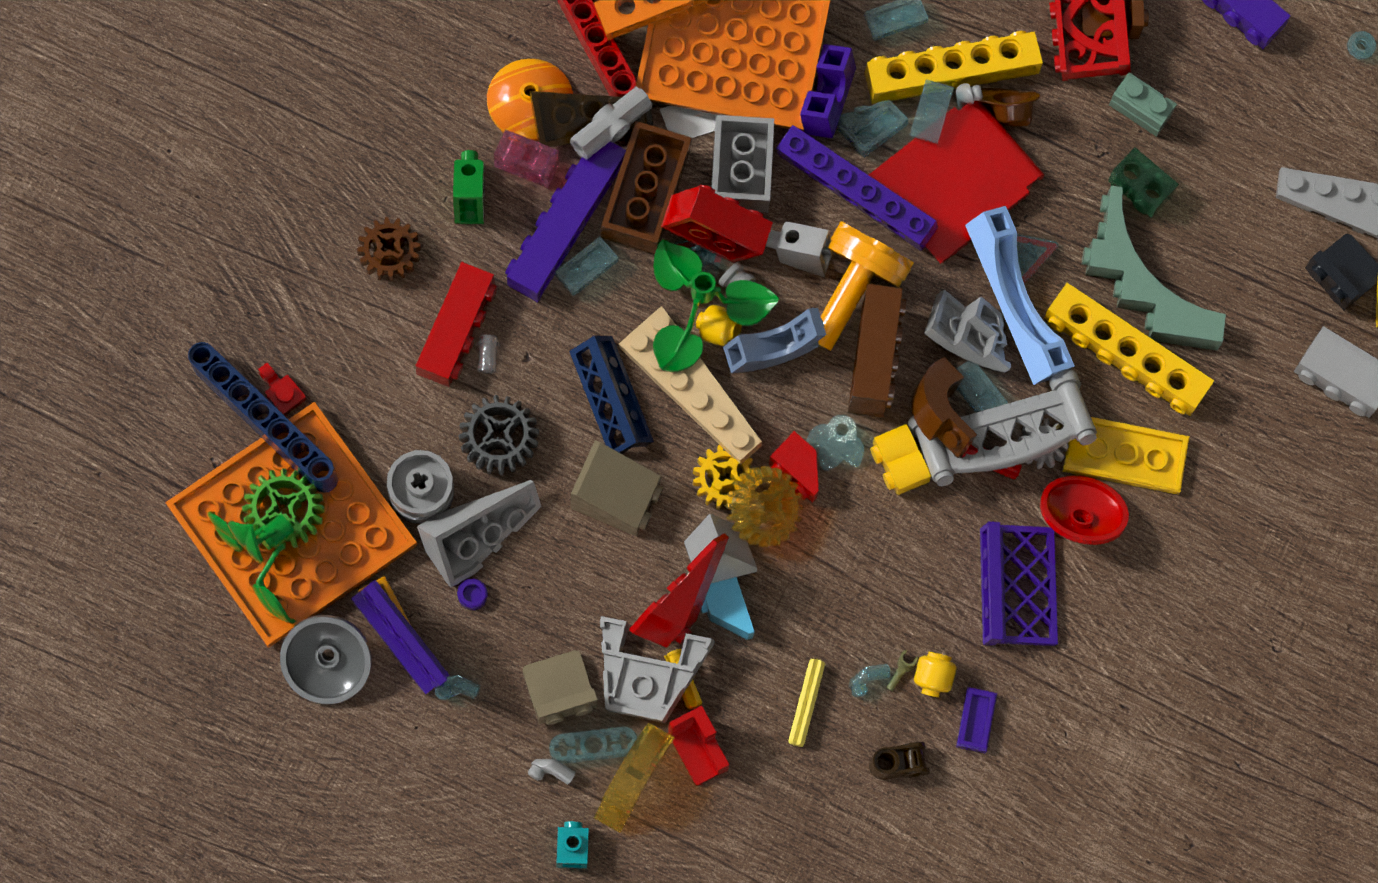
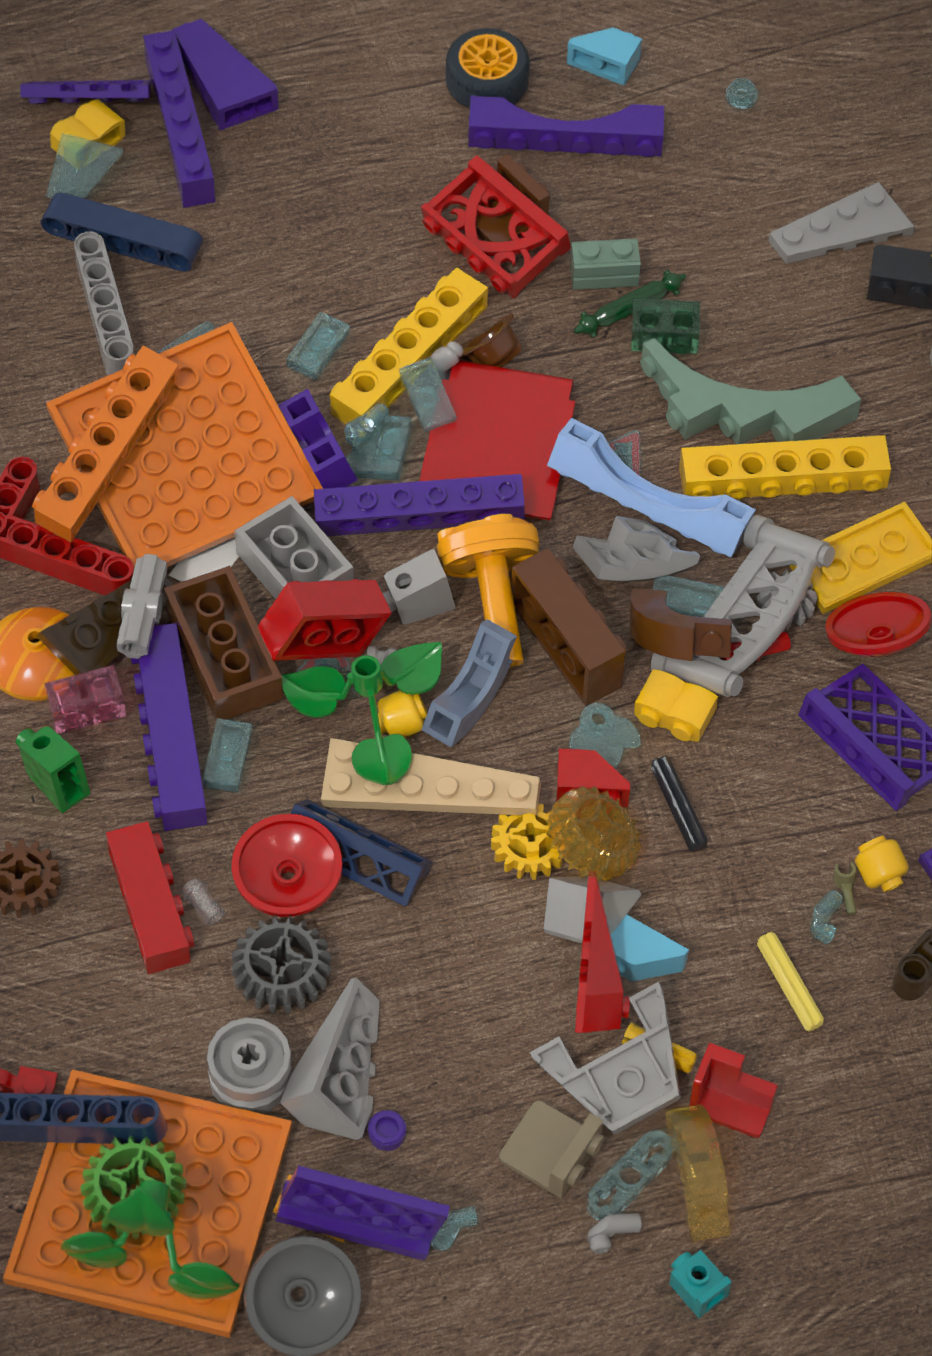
camera: 35 degrees left, 15 degrees down
(551, 354) = (283, 846): none -> red dish
(615, 490) = (440, 926): dark tan slope -> none
(844, 527) = (679, 804): none -> black axle
(868, 101) = (365, 424): none -> clear light blue arm
(1125, 144) = (622, 306): none -> dark green wheel

